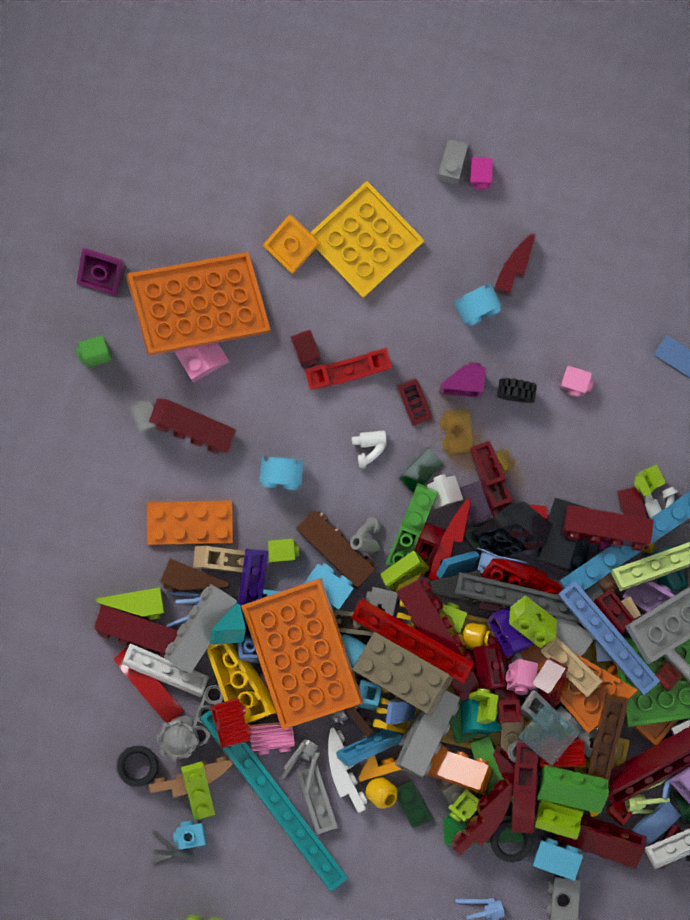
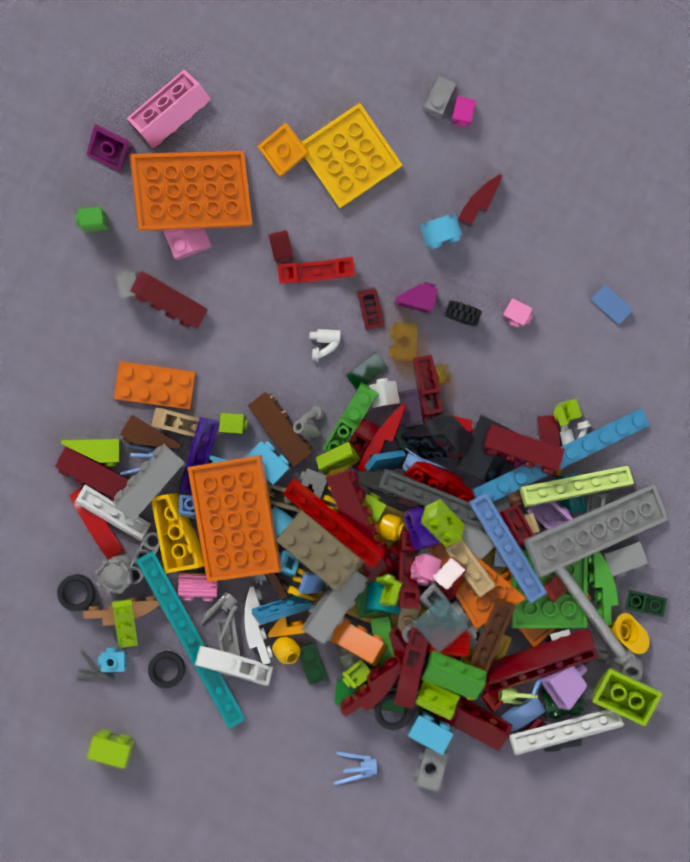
camera: 10 degrees right, 5 degrees up
(159, 219) = (169, 108): none -> bright pink slope
(230, 628) = (174, 486): teal slope -> none
(231, 723) = (161, 569): red brick -> none
(235, 838) = (152, 665): none -> black tyre
(281, 471) = (242, 353): medium azure brick -> none
(326, 818) = (234, 665): none -> white slope
(489, 666) = (399, 556): dark red slope -> none

